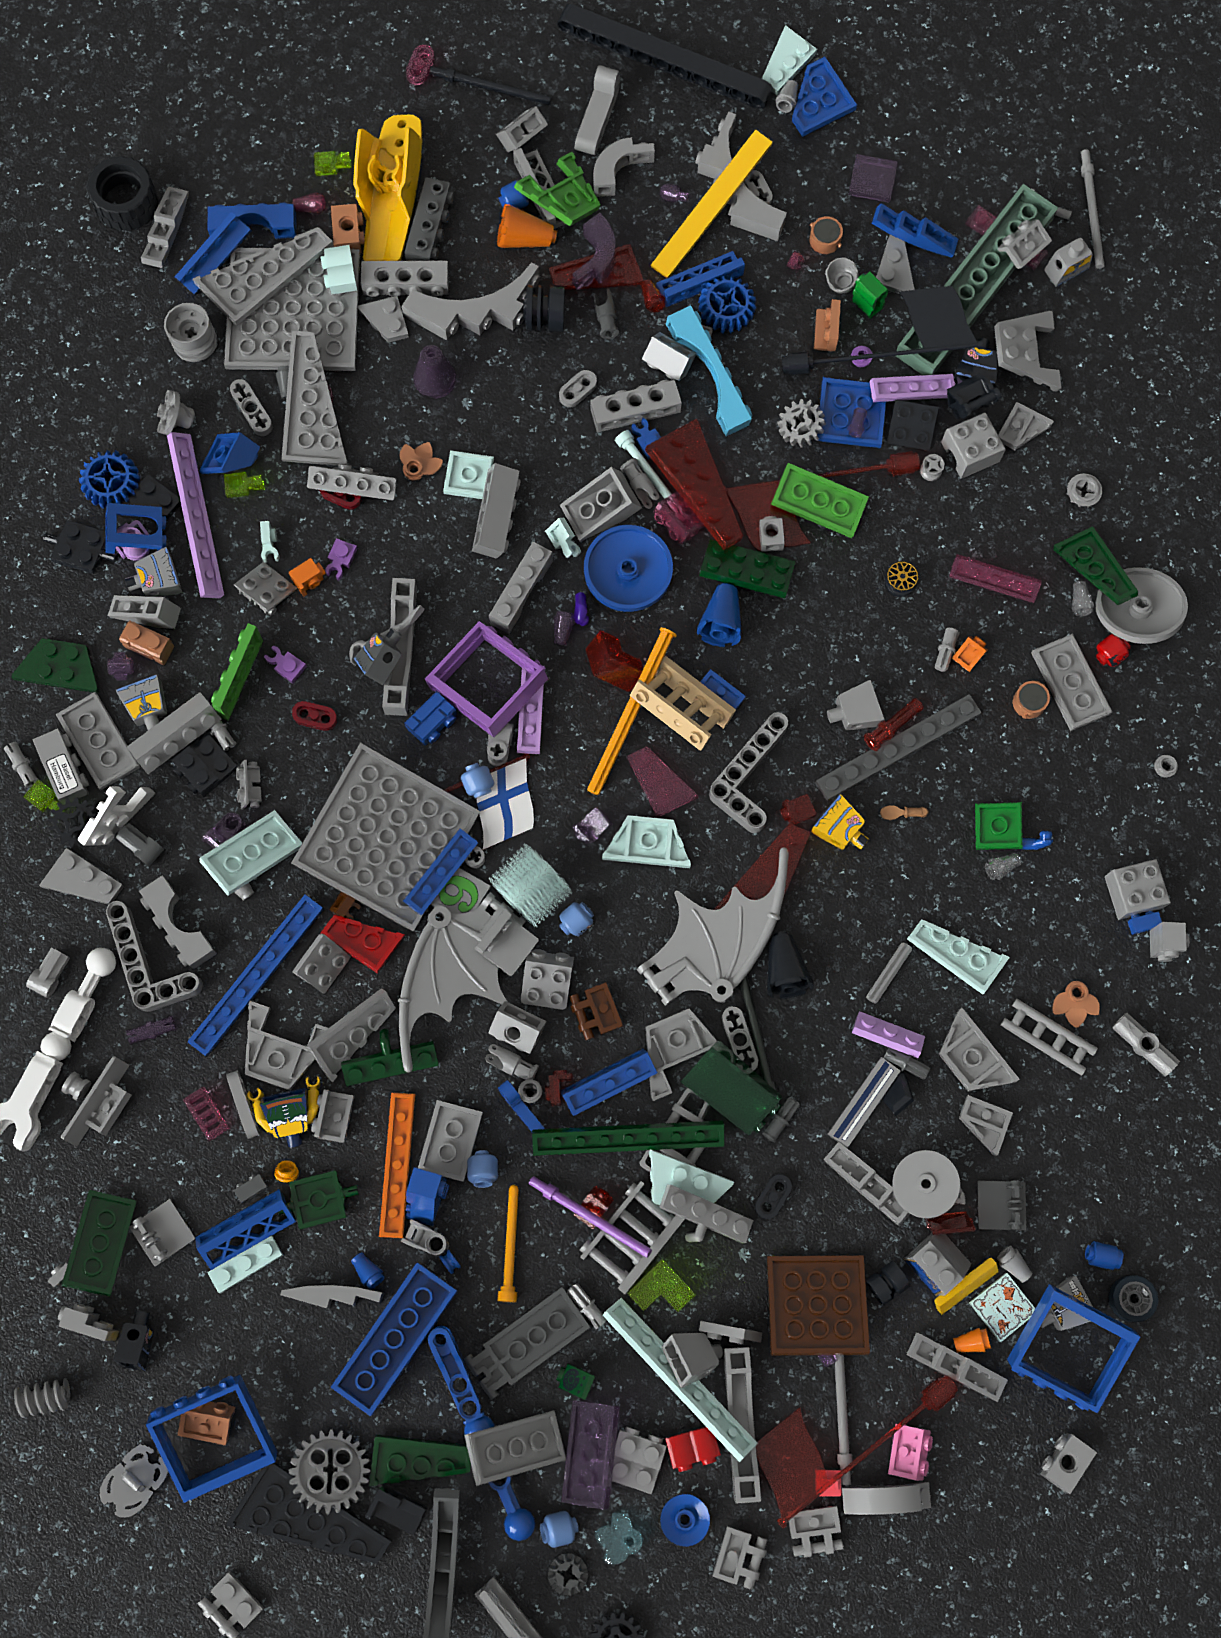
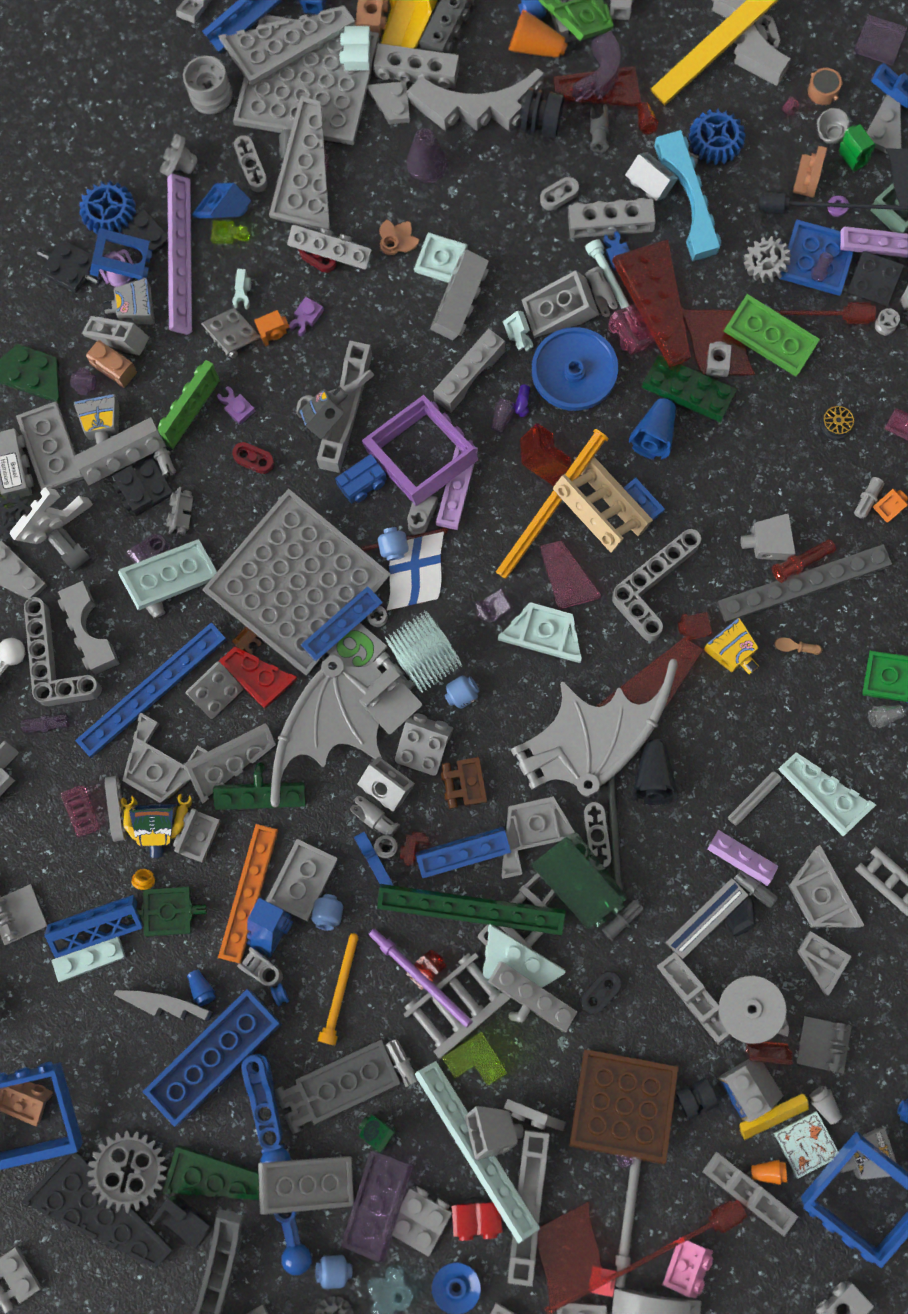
camera: 20 degrees right, 0 degrees up
(251, 1188) = (107, 889): dark grey piece -> none
(672, 193) = (684, 25): clear purple cylinder -> none
(691, 287) = (686, 115): blue fence -> none

